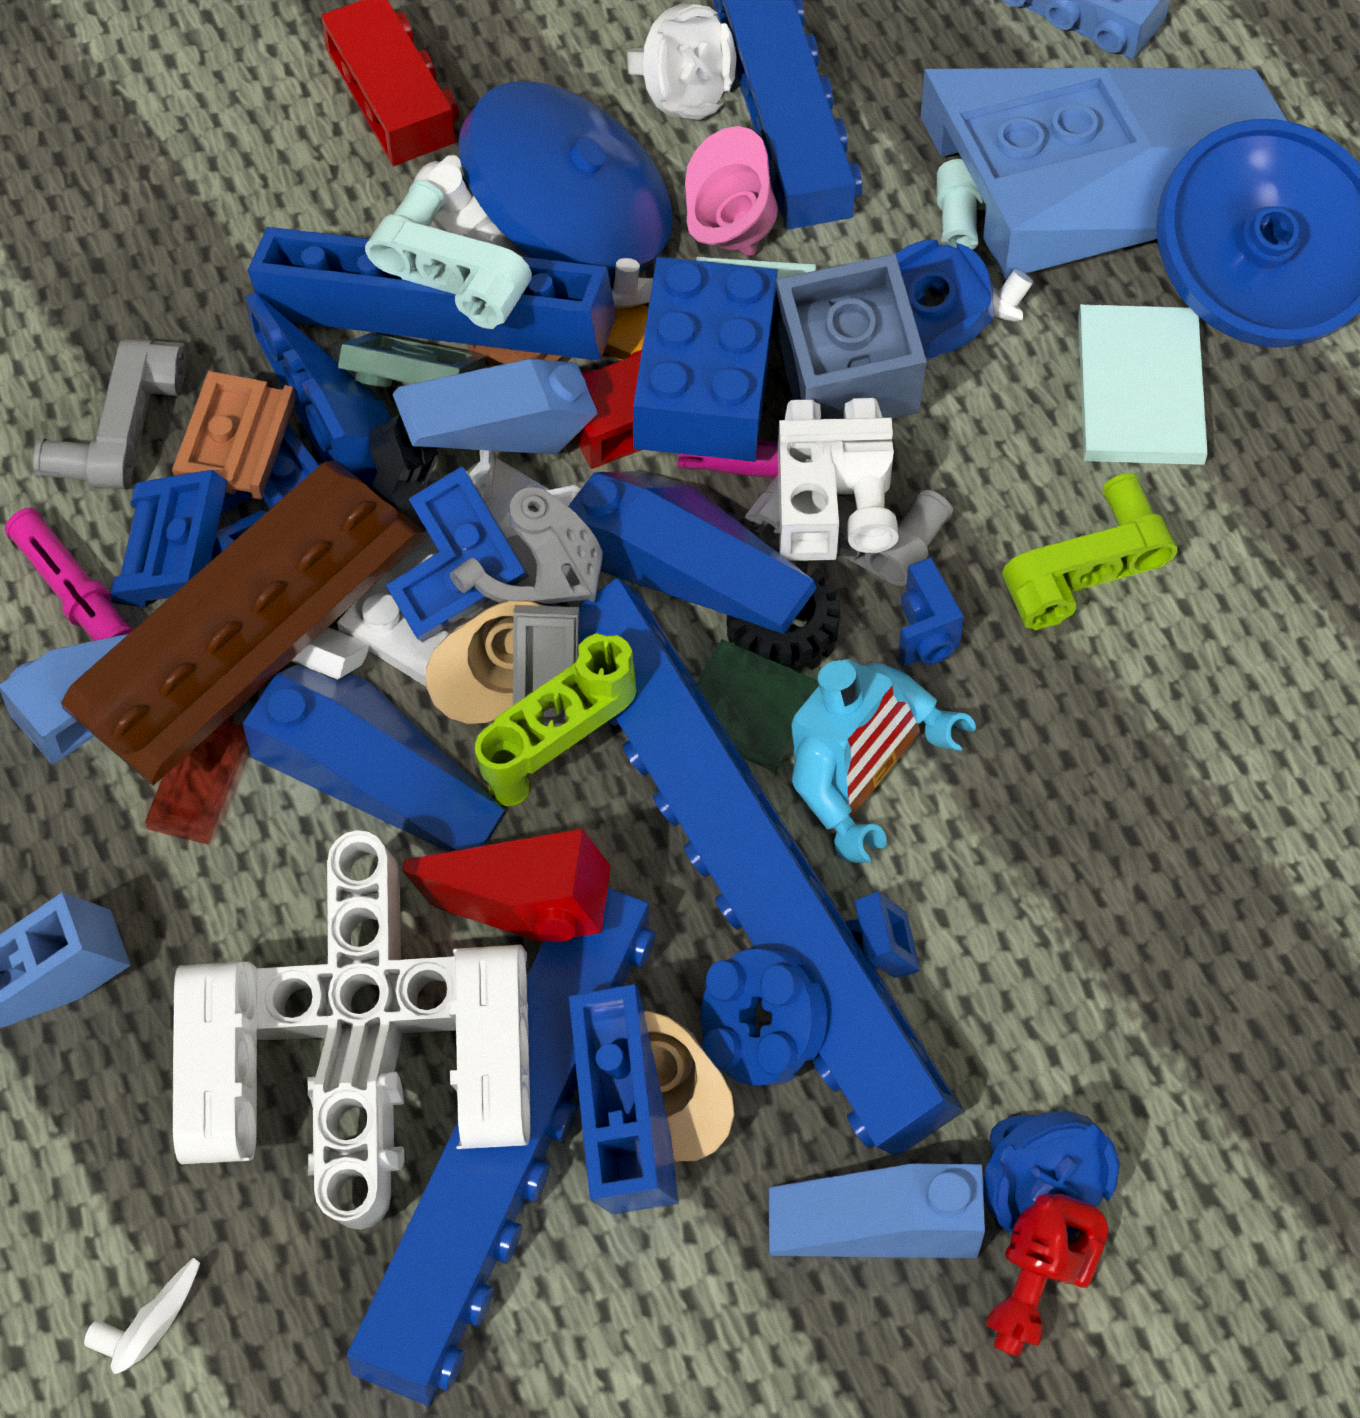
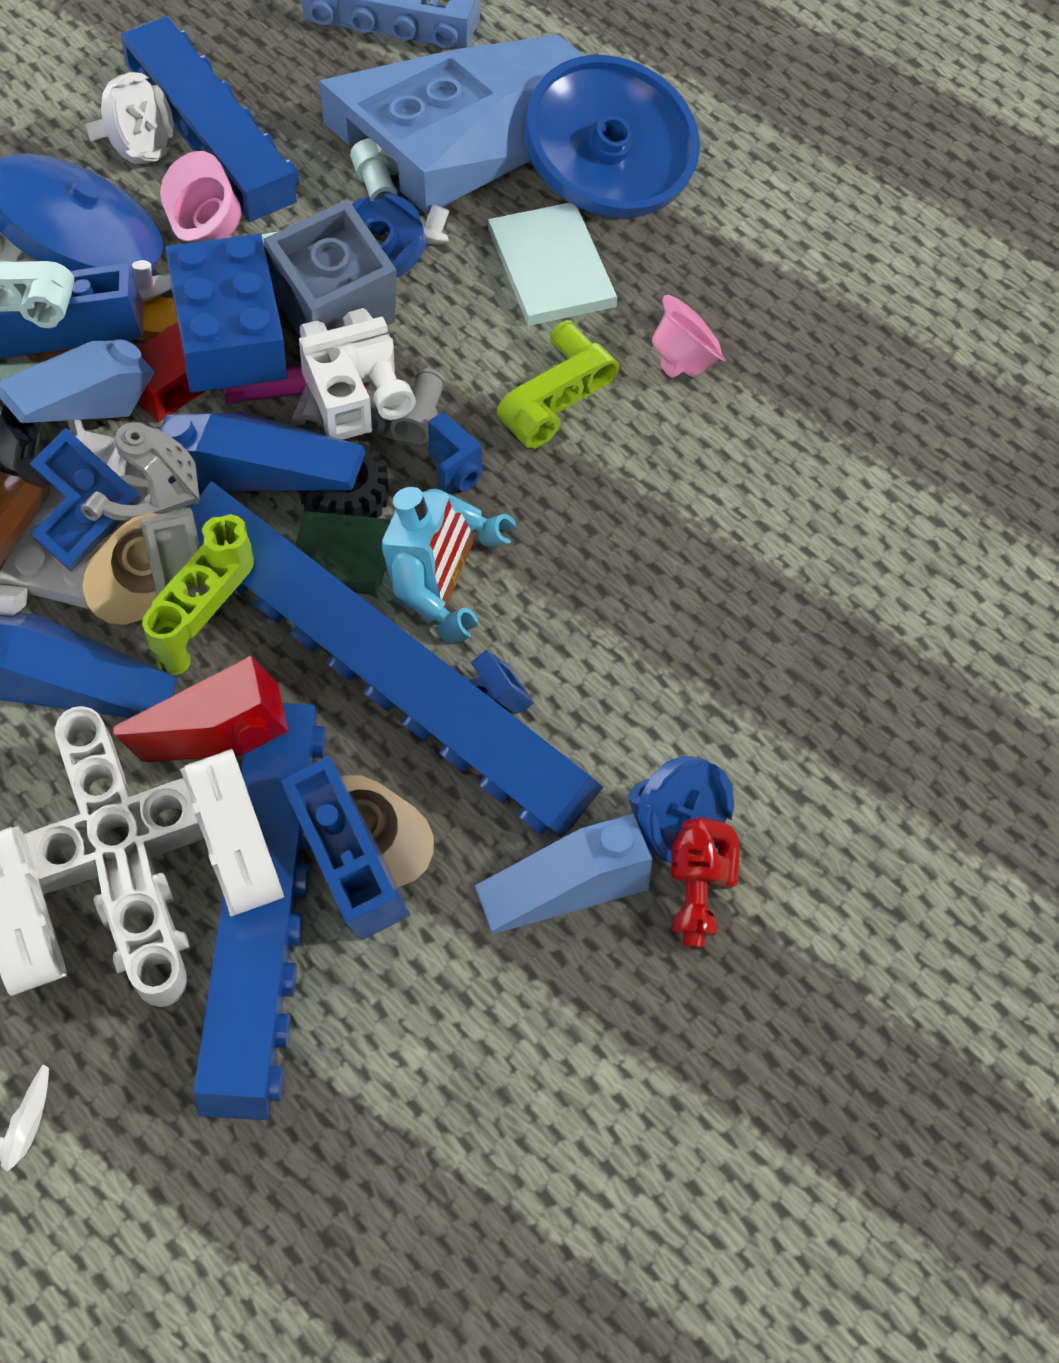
camera: 20 degrees left, 5 degrees down
(729, 1010) = (442, 734): blue plate -> none
(1273, 537) = (684, 340): none -> bright pink piece

